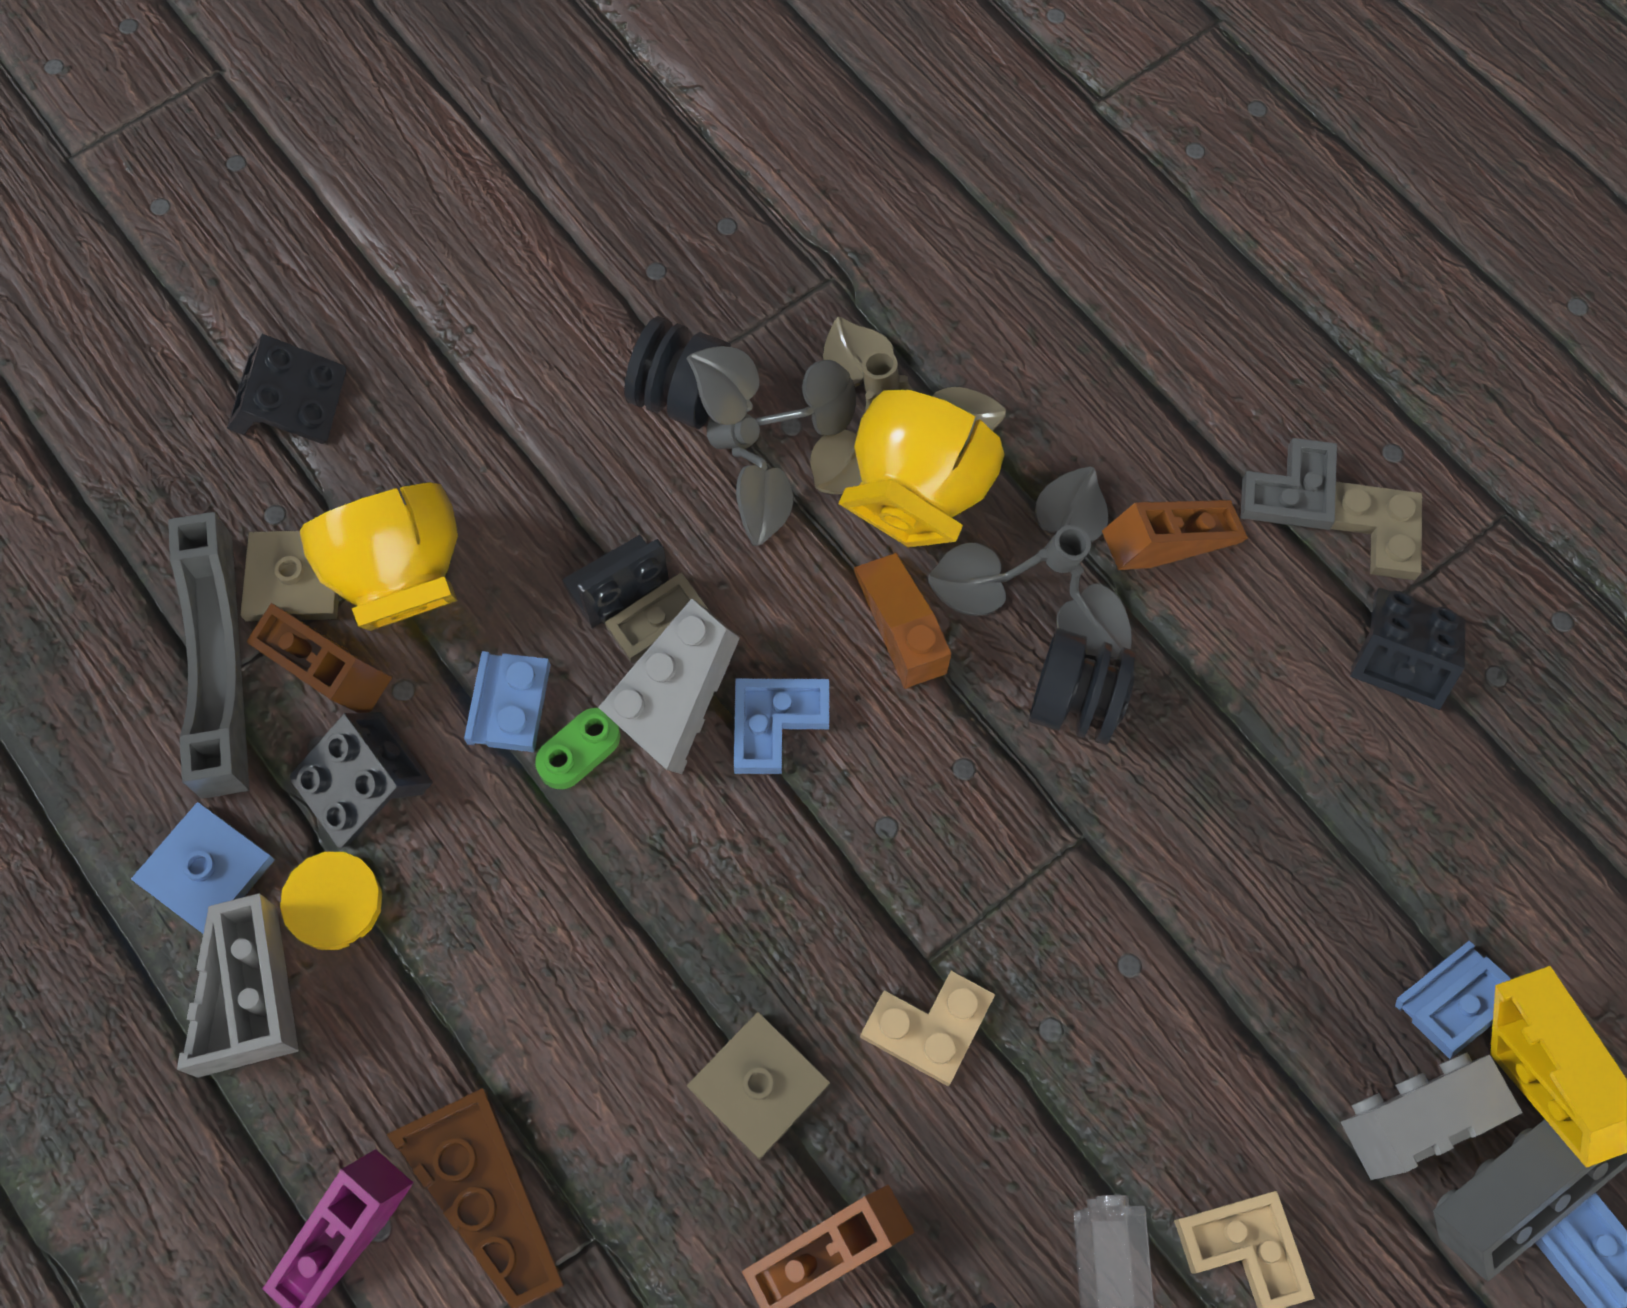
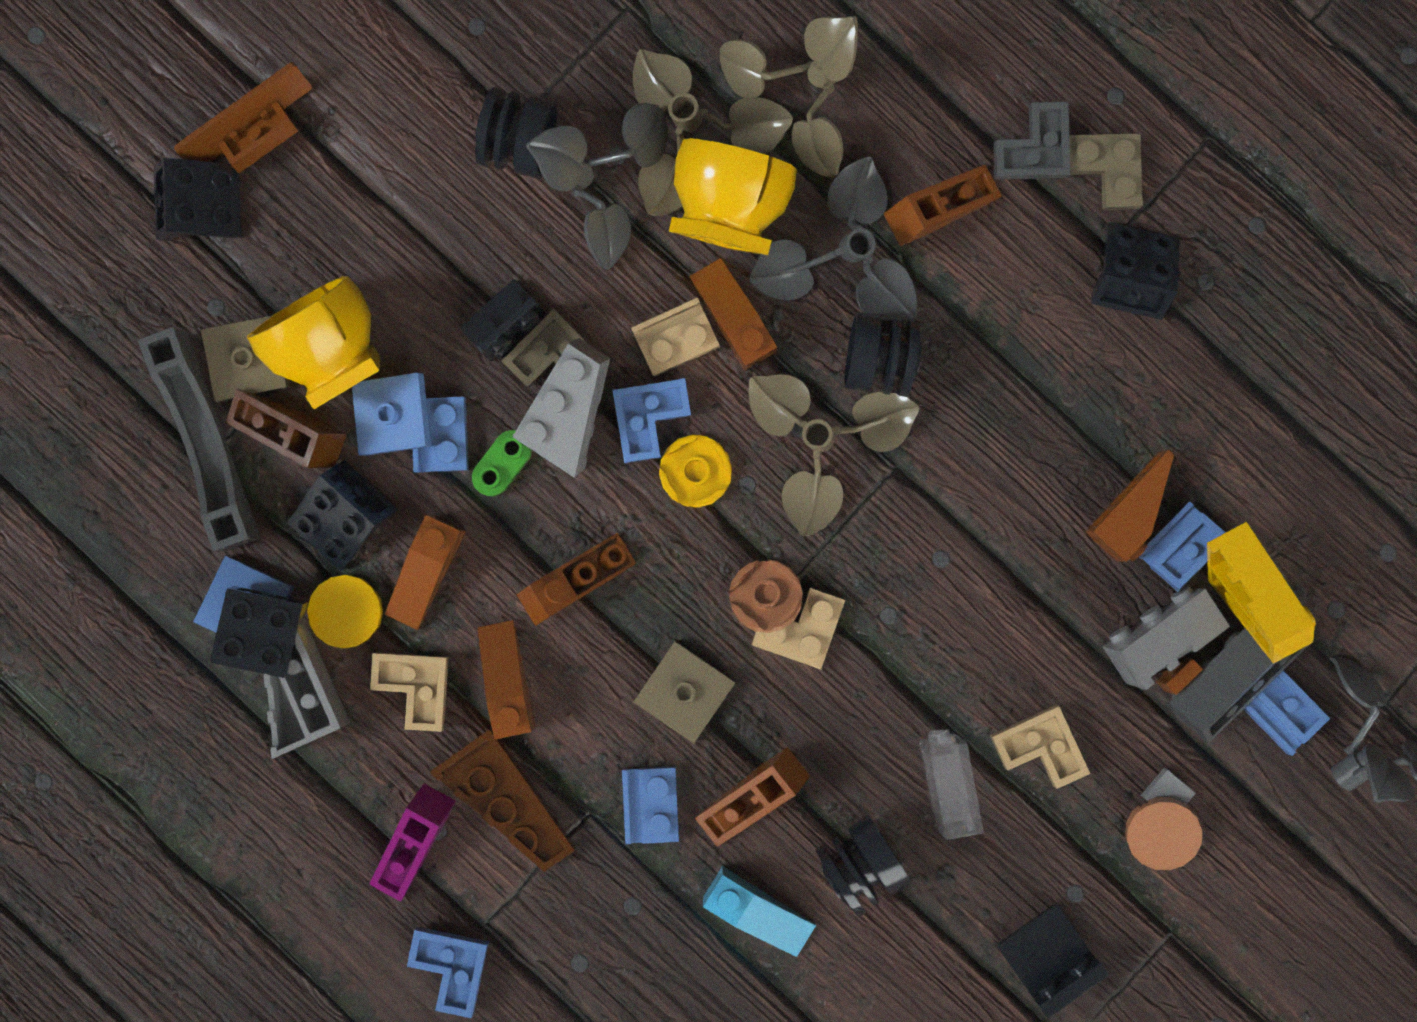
camera: 10 degrees left, 20 degrees up
(208, 893) = (257, 631): none -> black bracket
(372, 321) = (250, 124): none -> dark orange bracket
(410, 1011) = (423, 681): none -> tan plate
(447, 862) = (424, 570): none -> dark orange slope
(453, 664) = (391, 414): none -> medium blue plate
(519, 1028) = (505, 680): none -> dark orange slope
(639, 907) = (576, 579): none -> dark orange slope
(682, 1240) = (650, 805): none -> medium blue plate
(822, 798) = (695, 471): none -> yellow tile
(825, 634) = (675, 337): none -> tan plate
(890, 970) = (766, 596): none -> nougat tile
(975, 859) = (781, 401): none -> dark tan plant
(1065, 322) = (833, 48): none -> dark tan plant
(1393, 944) = (1132, 514): none -> dark orange slope
(1446, 1174) = (1178, 678): none -> dark orange plate

